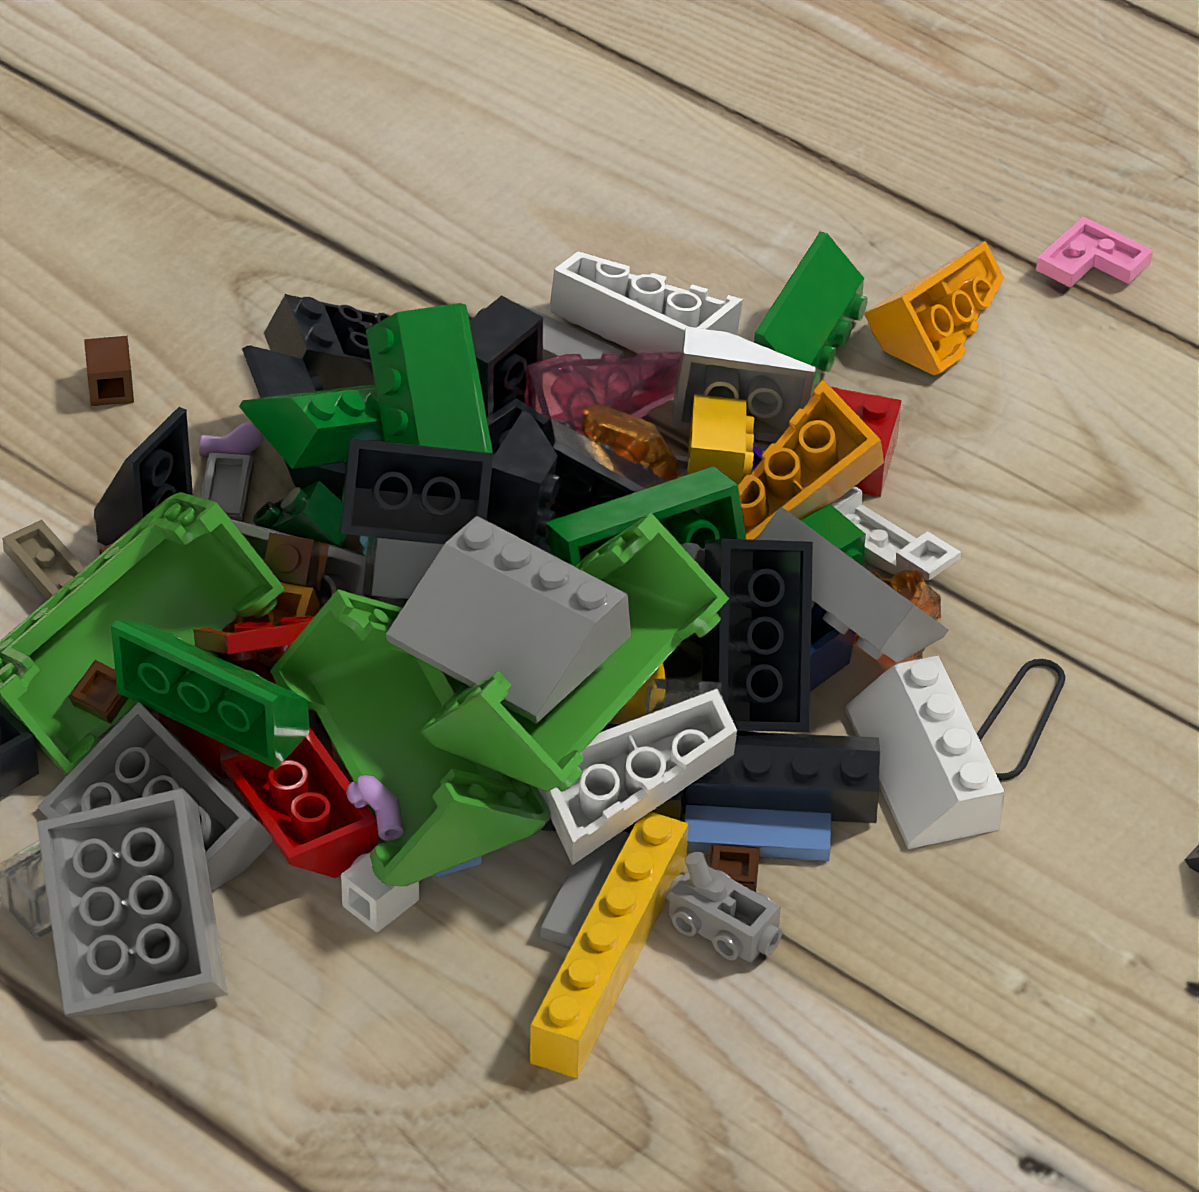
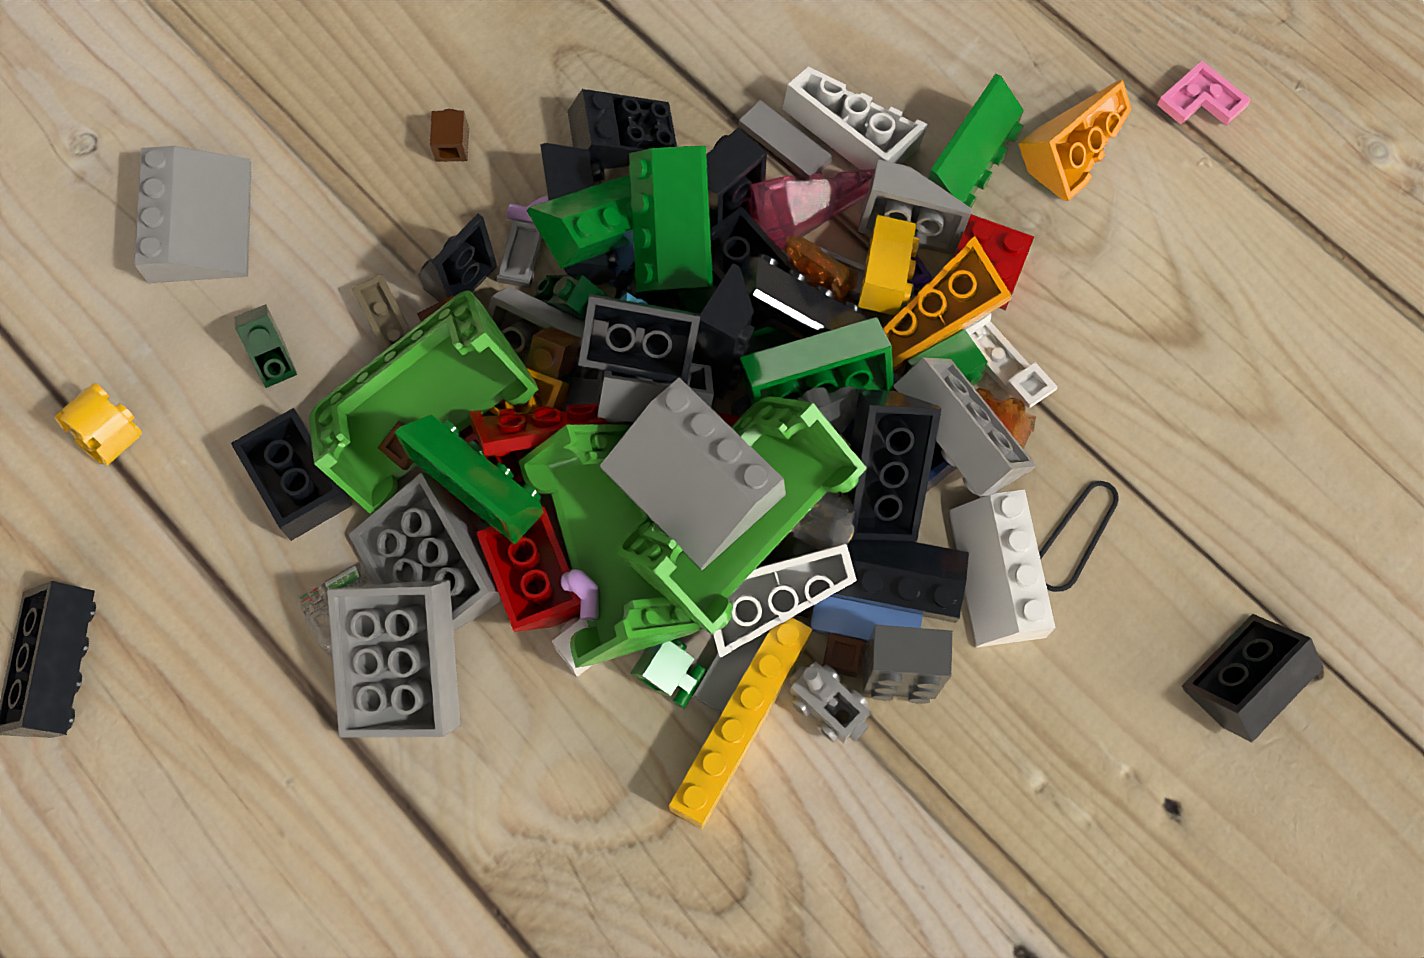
camera: 10 degrees right, 25 degrees up
(497, 897) = (665, 668): none -> brick
(818, 838) = (907, 663): none -> dark grey brick

